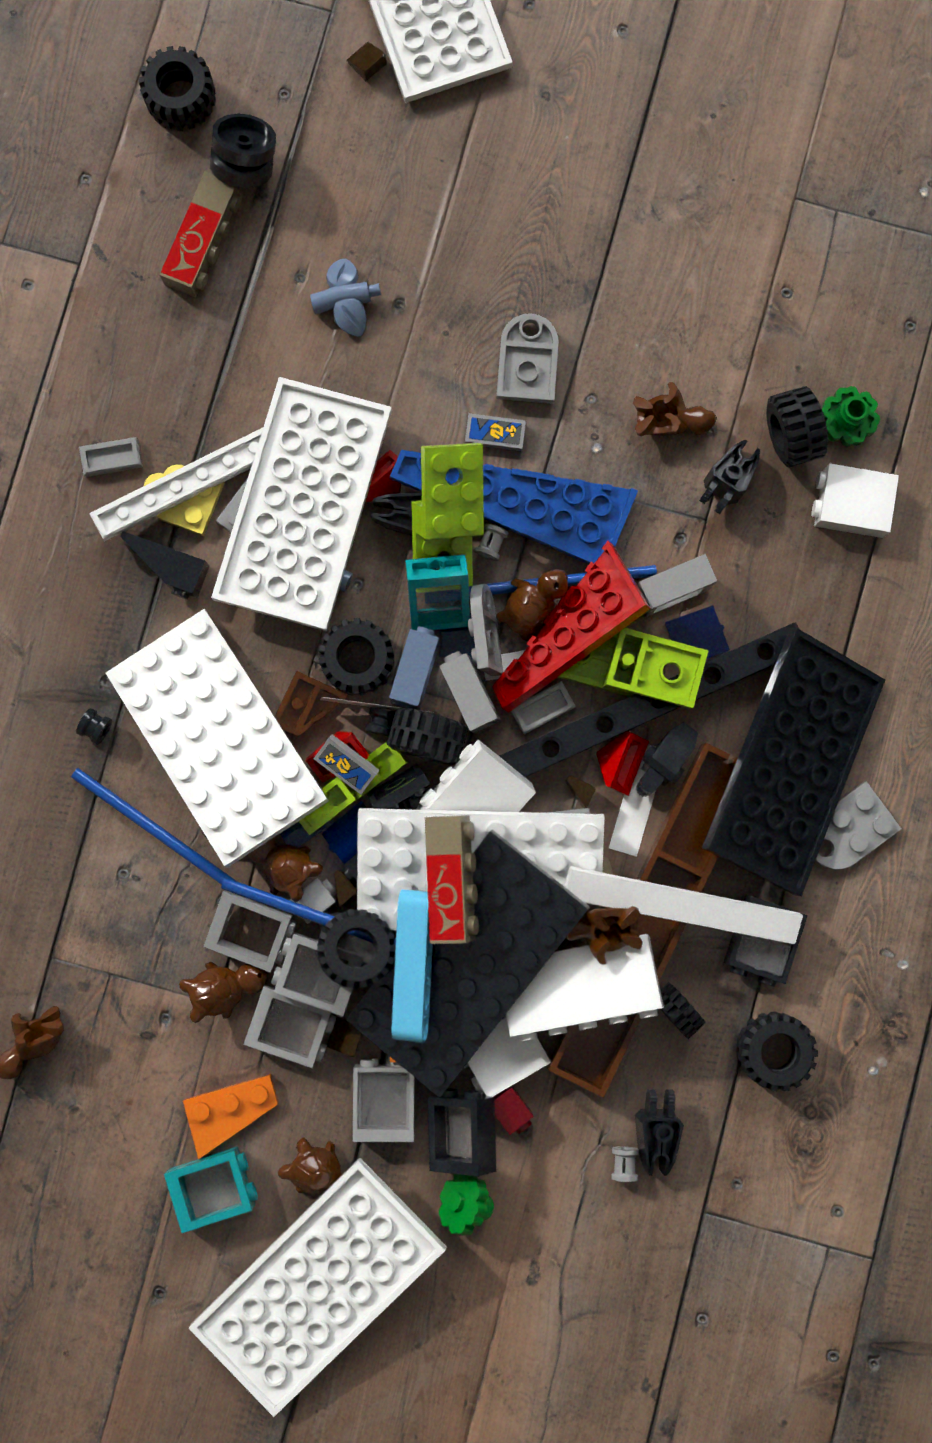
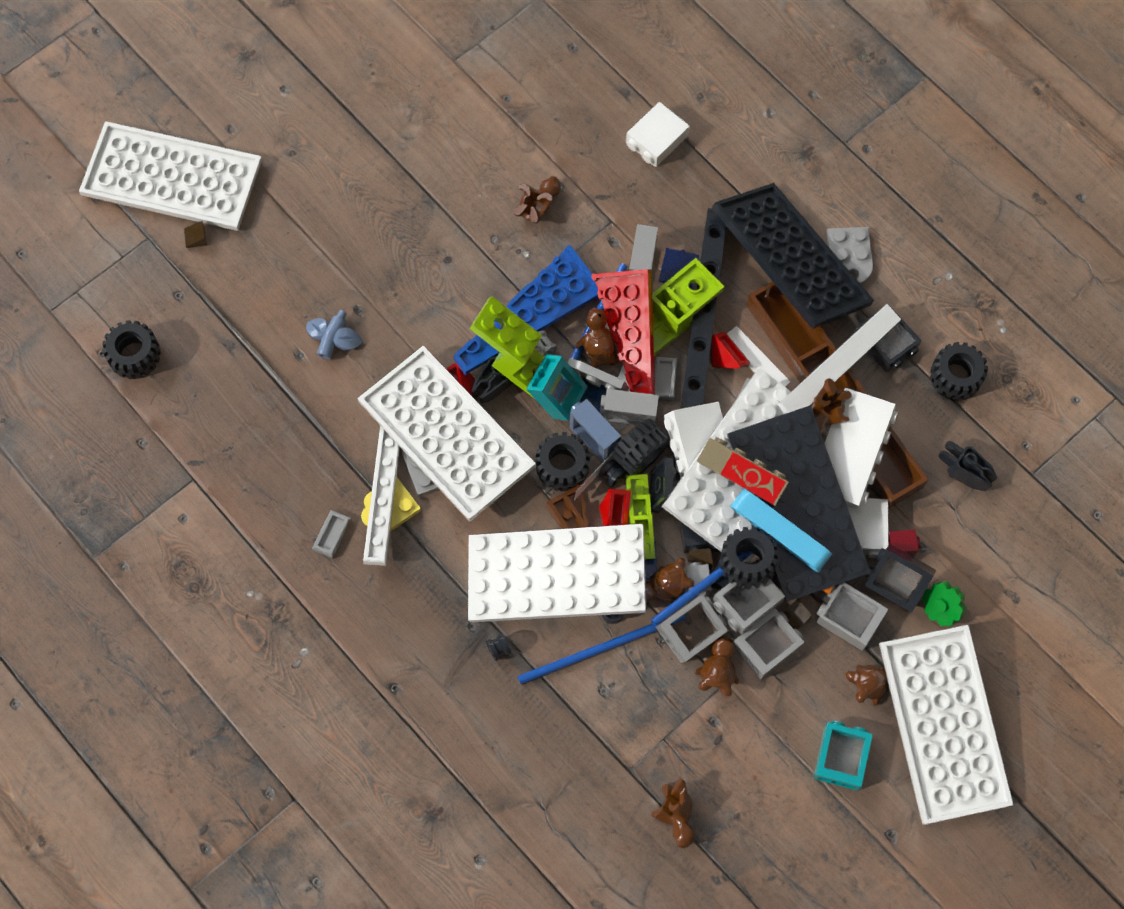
camera: 55 degrees left, 15 degrees down
(176, 569) = (428, 538): black slope -> none
(200, 235) = (232, 393): brick -> none
(227, 1110) = (798, 717): orange wing -> none
(242, 150) = (201, 333): black wheel -> none
(344, 834) = (669, 532): clear blue piece -> none
(346, 764) = (626, 505): tile -> none
(495, 432) = (475, 301): tile -> none
(528, 362) = (448, 258): light grey plate -> none
(581, 790) = (730, 385): dark brown slope -> none
(627, 1174) = (975, 498): light grey bush -> none
(666, 760) = (743, 326): black hinge -> none
(680, 1011) = (907, 407): black tyre -> none
(728, 478) = (597, 189): black hinge -> none
(797, 426) = (593, 135): black tyre -> none
(850, 416) = (604, 108): green plant -> none

